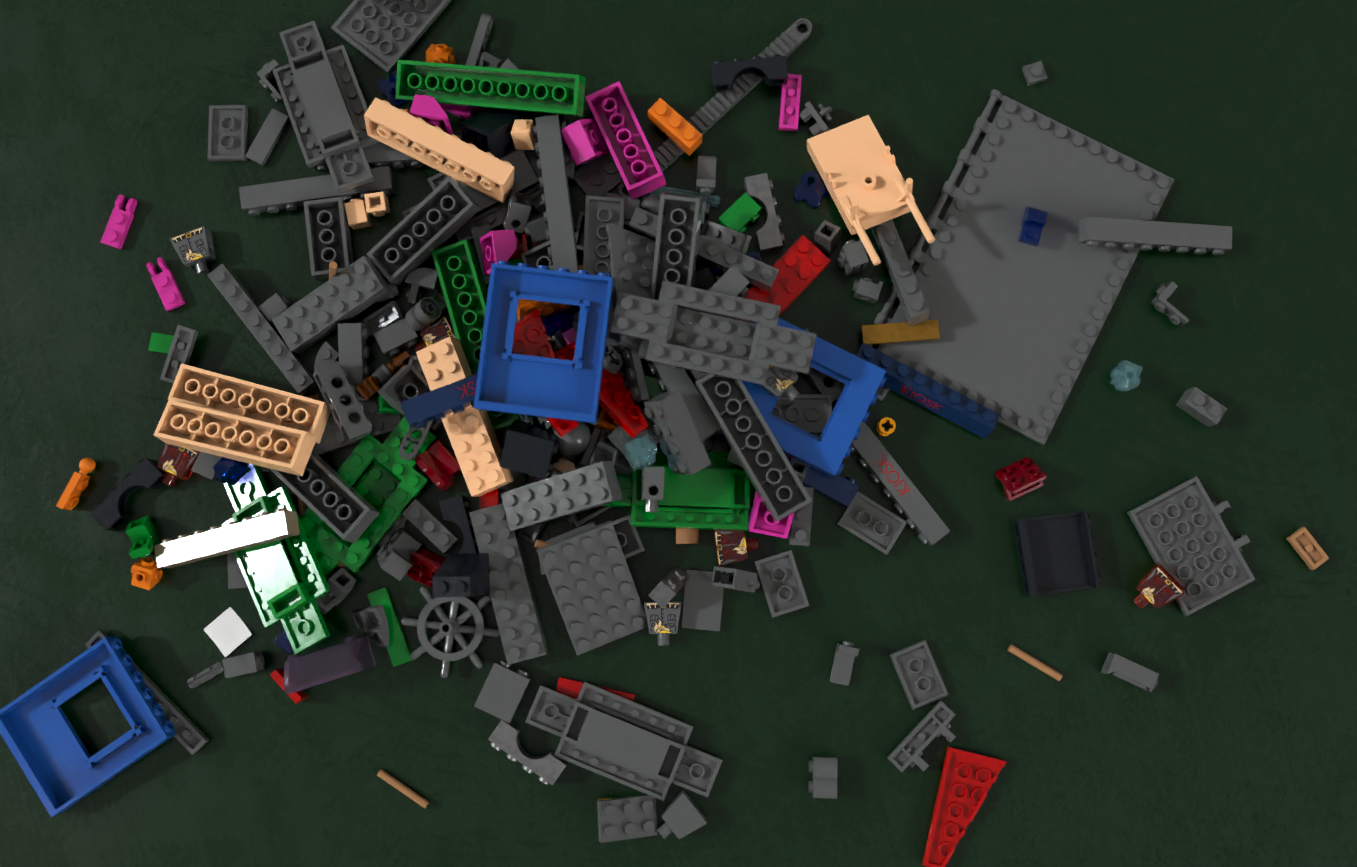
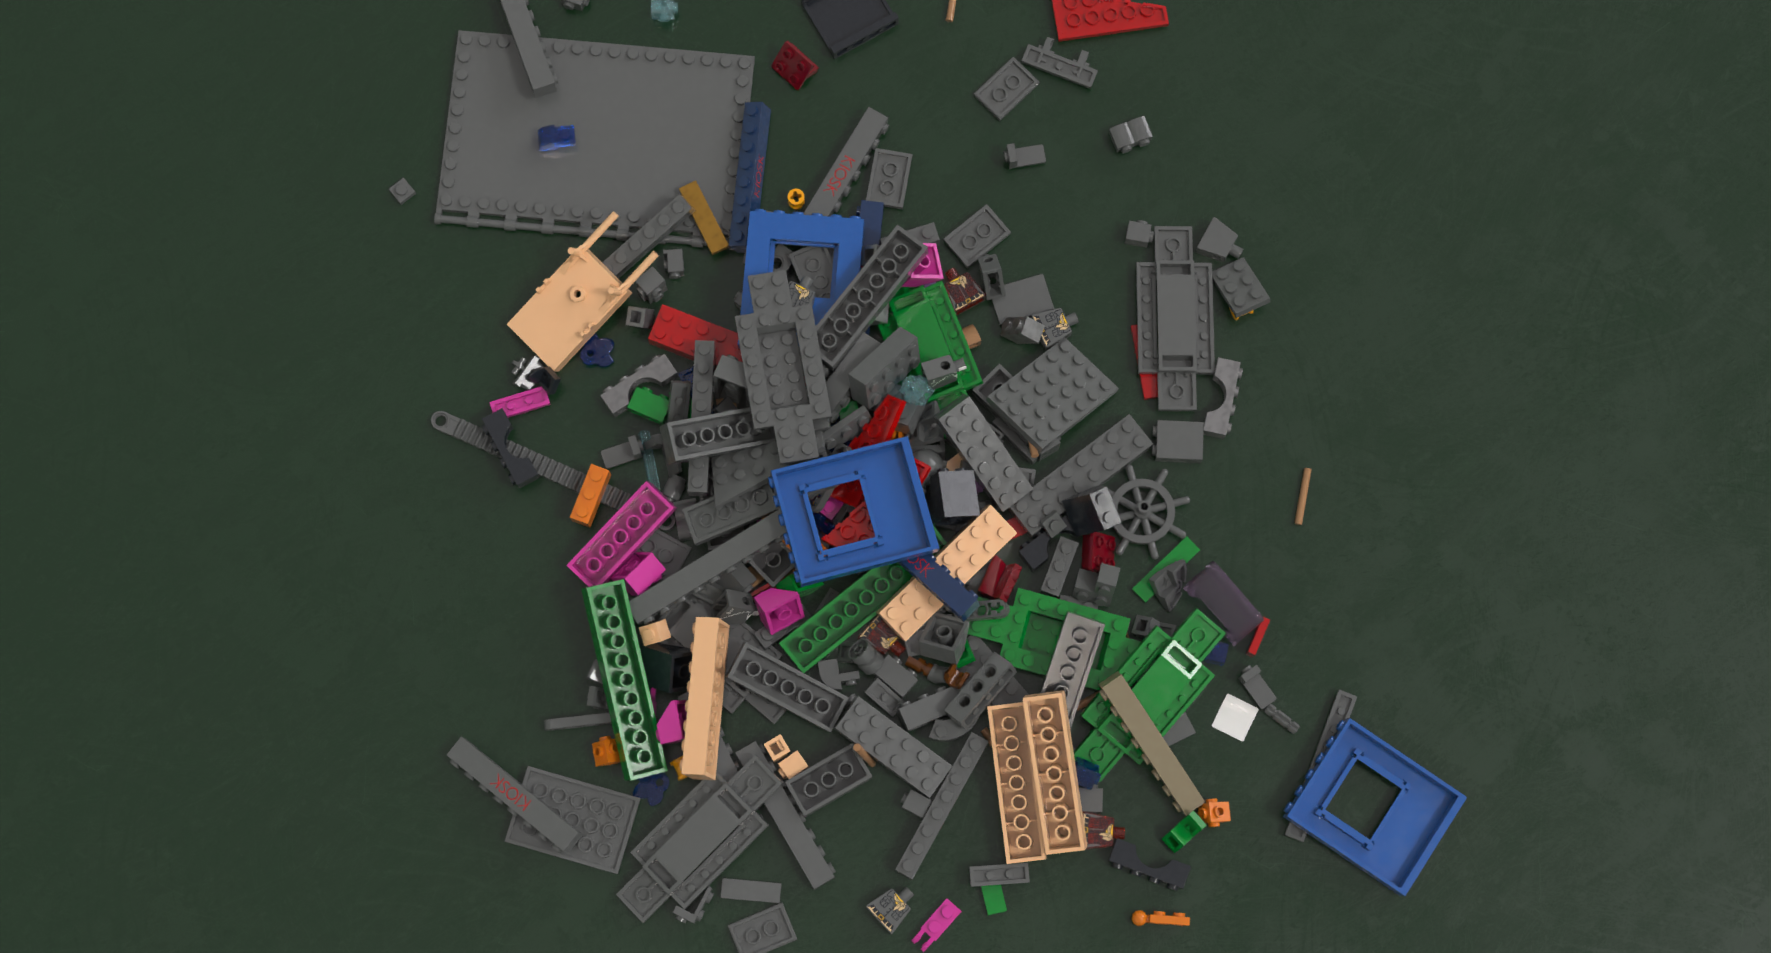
camera: 115 degrees left, 5 degrees down
(470, 536) = (1053, 523): none -> dark grey plate
(721, 742) = (1139, 233): none -> dark grey brick
(803, 131) = (546, 378): none -> black plate

